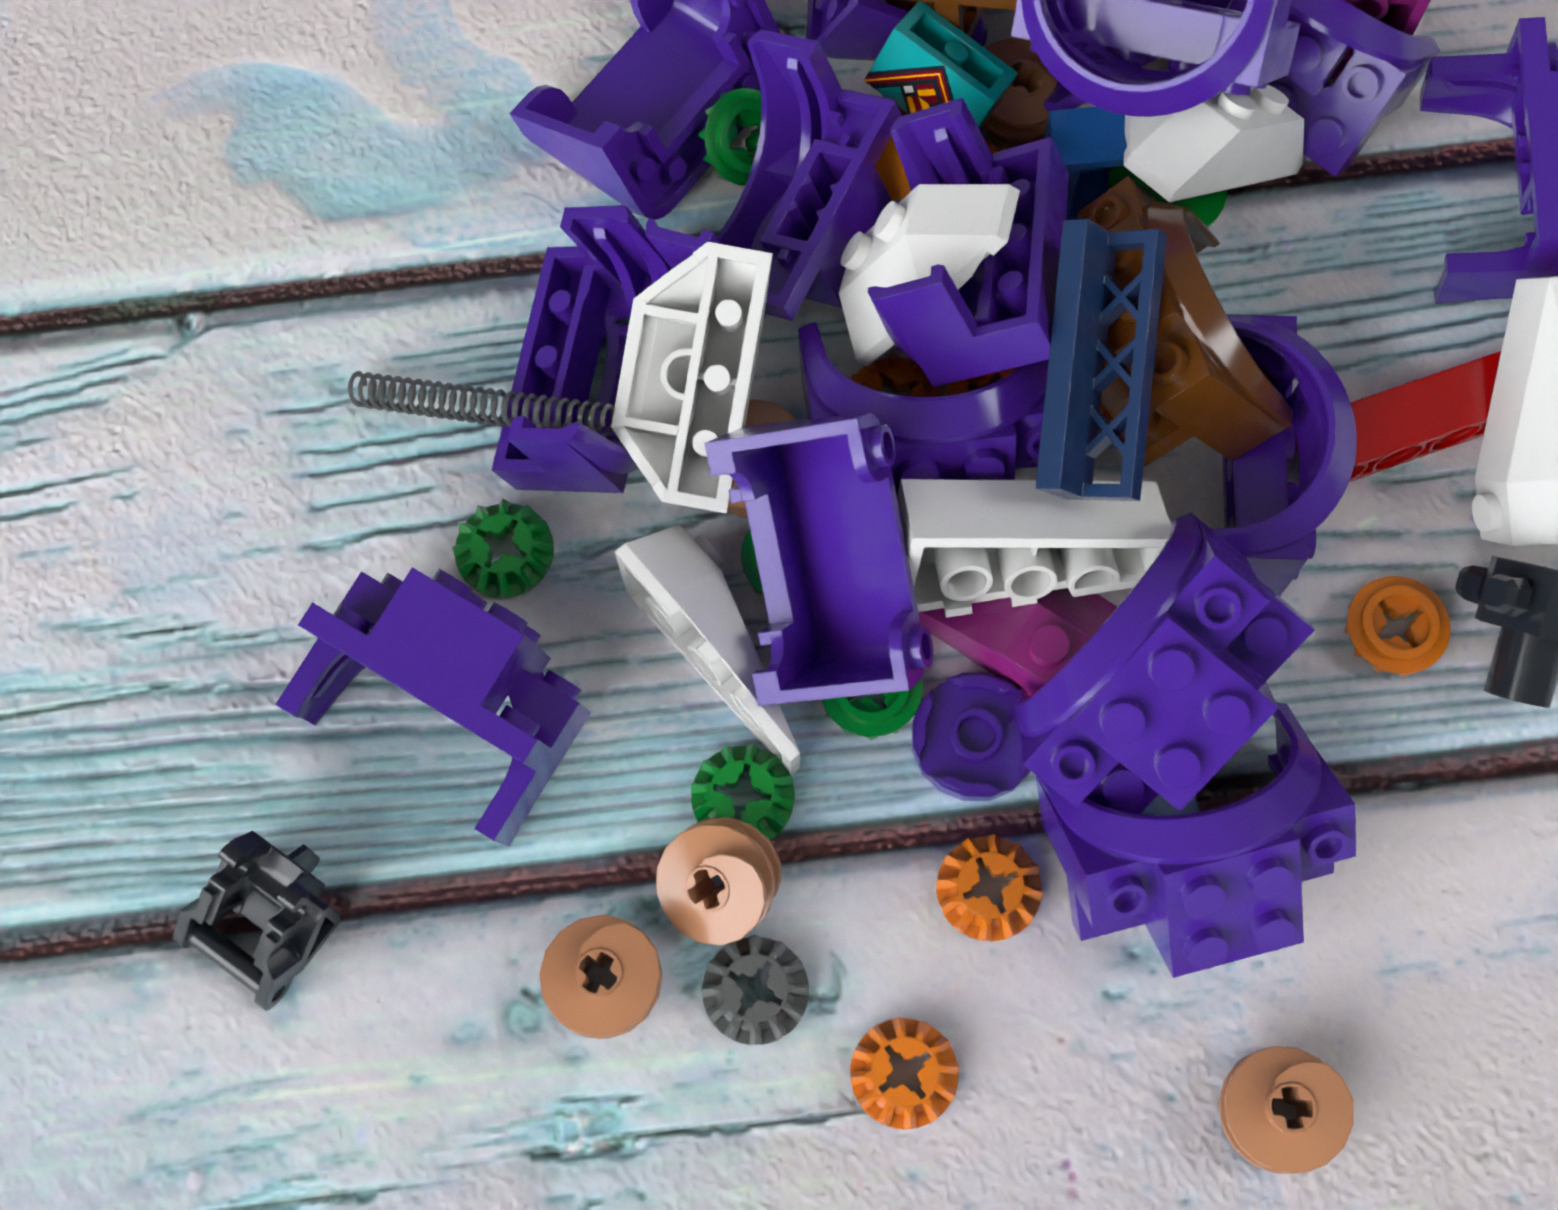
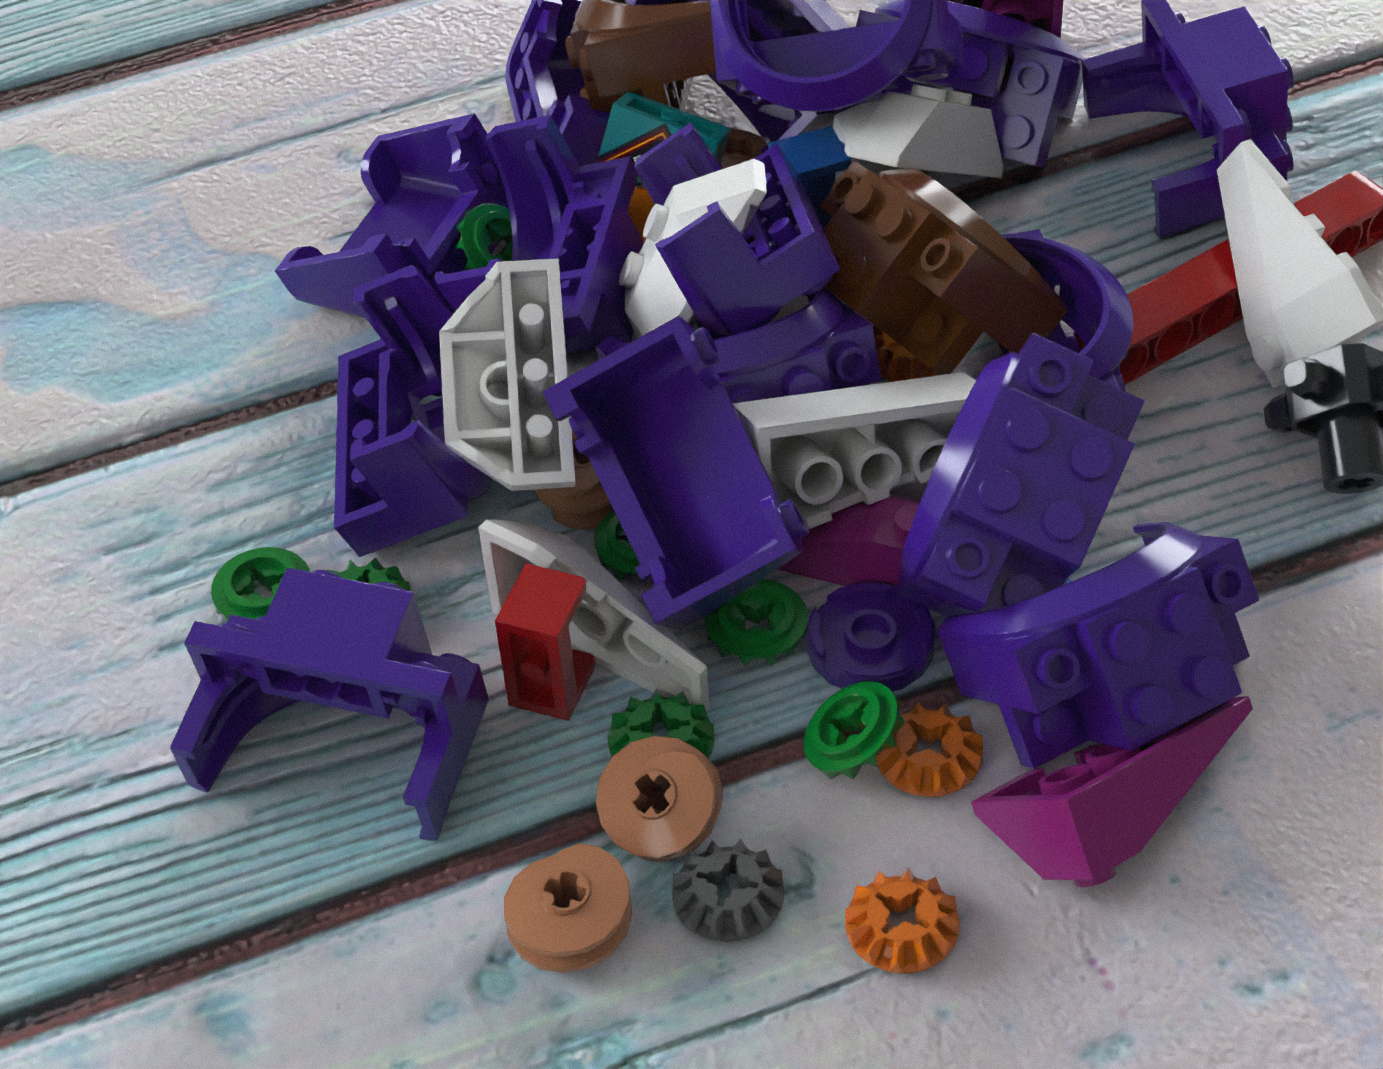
camera: 15 degrees left, 25 degrees down
(276, 896) = (204, 917): black piece -> none
(390, 493) = (234, 582): none -> green gear
(410, 408) = (271, 490): dark grey piece -> none
(654, 676) = (535, 643): none -> red panel
(895, 861) = (848, 710): none -> green gear
(1078, 362) = (859, 270): dark blue fence -> none
(1119, 1014) = (1110, 803): none -> magenta wedge
(1270, 1140) = (1285, 844): nougat piece -> none
(1398, 598) = (1222, 443): orange gear -> none

